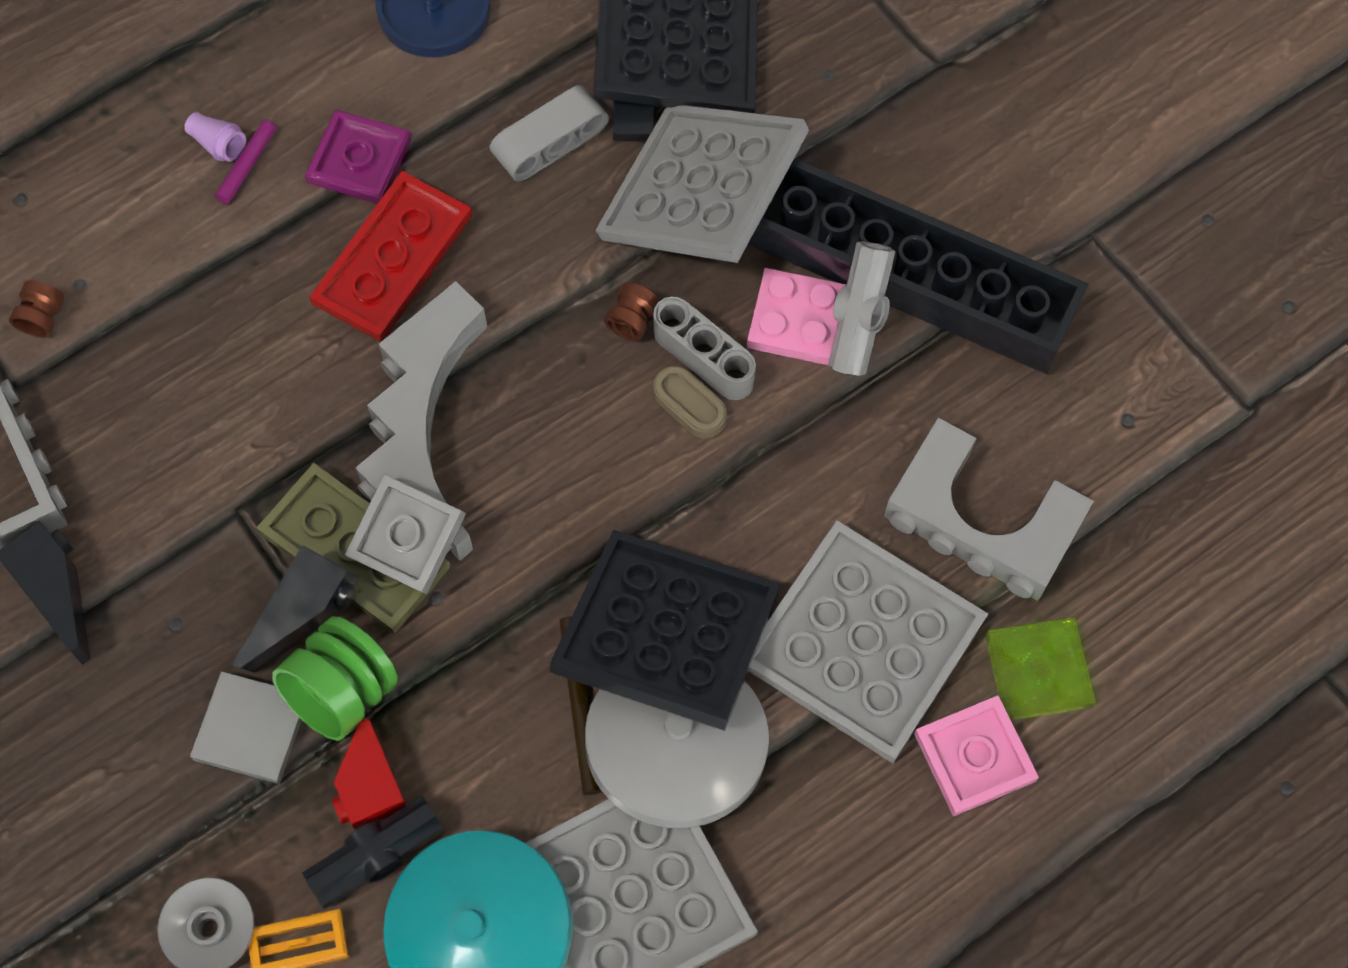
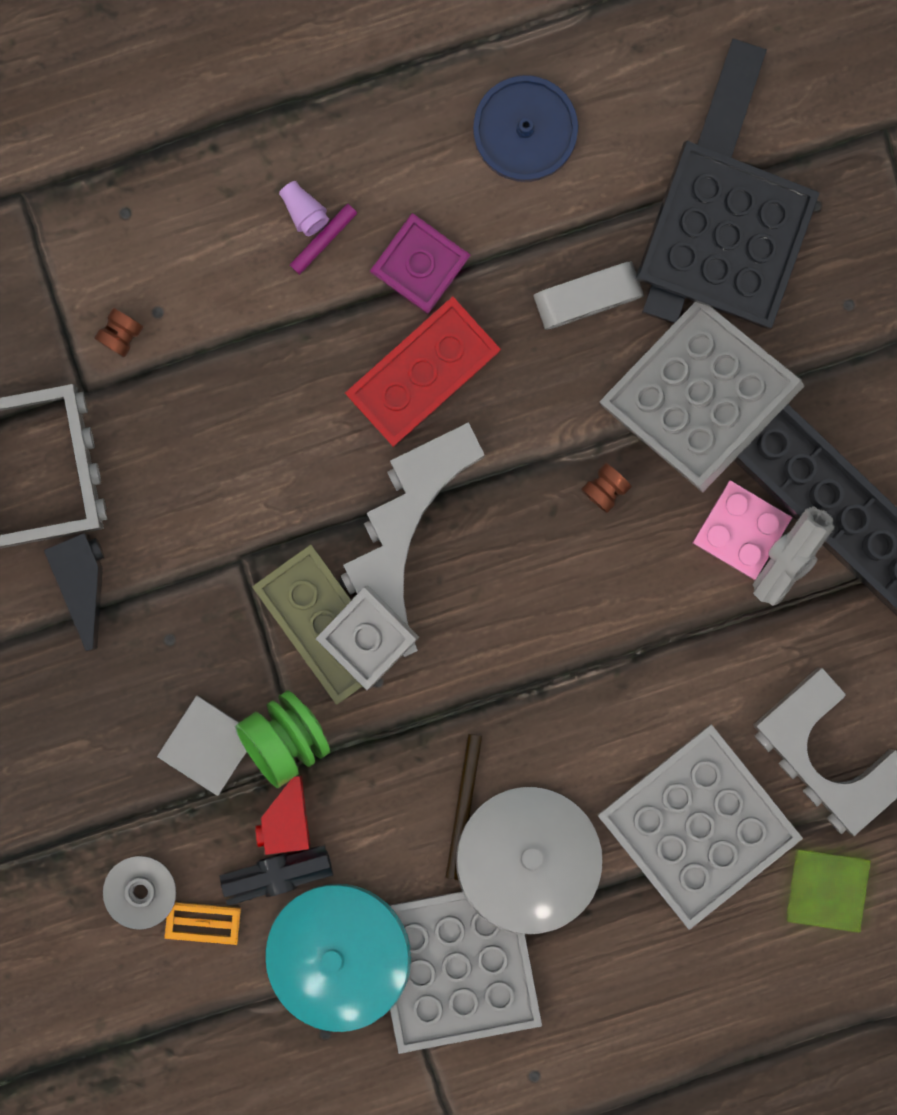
camera: 20 degrees right, 20 degrees up
(301, 603) = (276, 665): black slope -> none
(666, 629) = (548, 777): black plate -> none
(689, 402) = (629, 579): dark tan tile -> none
(698, 330) = (656, 558): light grey beam -> none
(976, 755) = (752, 944): bright pink plate -> none

